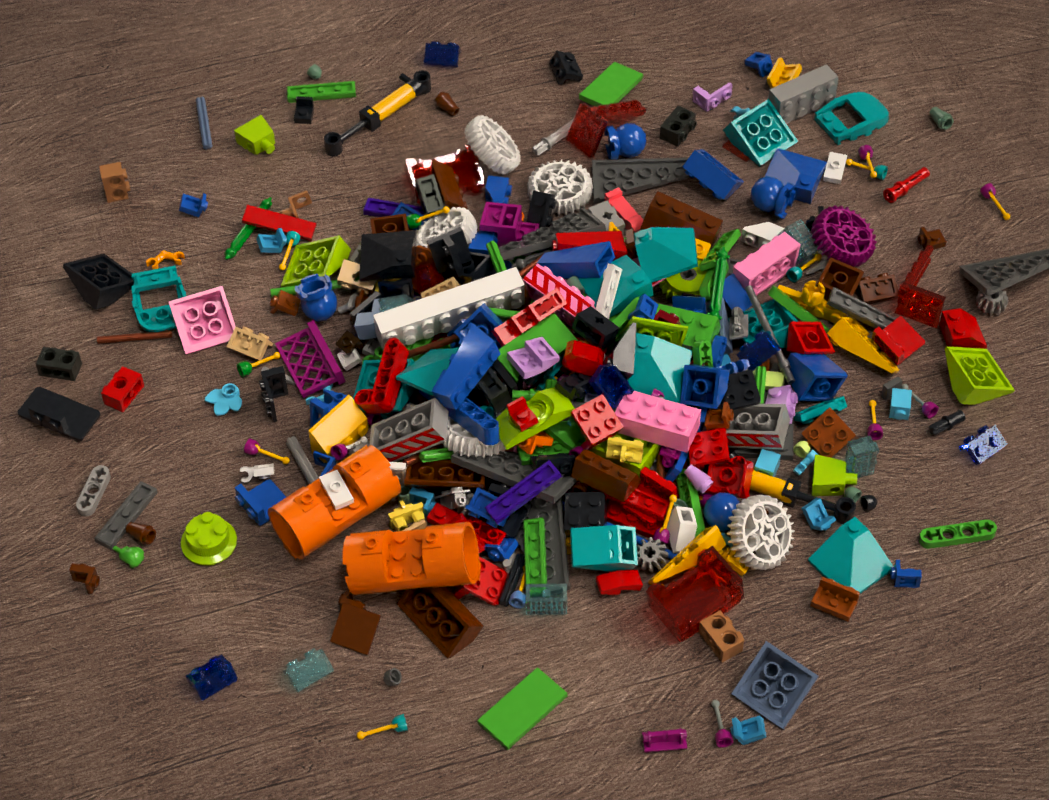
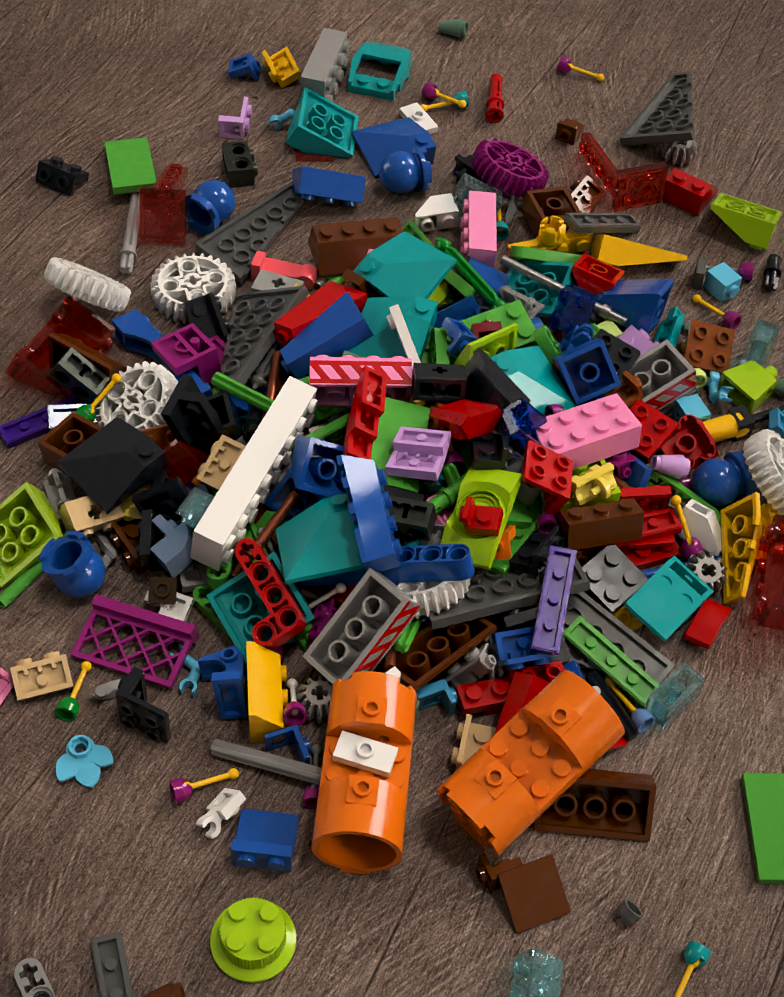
camera: 50 degrees left, 0 degrees up
(285, 302) = (31, 601): dark orange bracket -> none
(405, 514) = (435, 737): light yellow hips -> none
(898, 340) = (656, 229): red bracket -> none

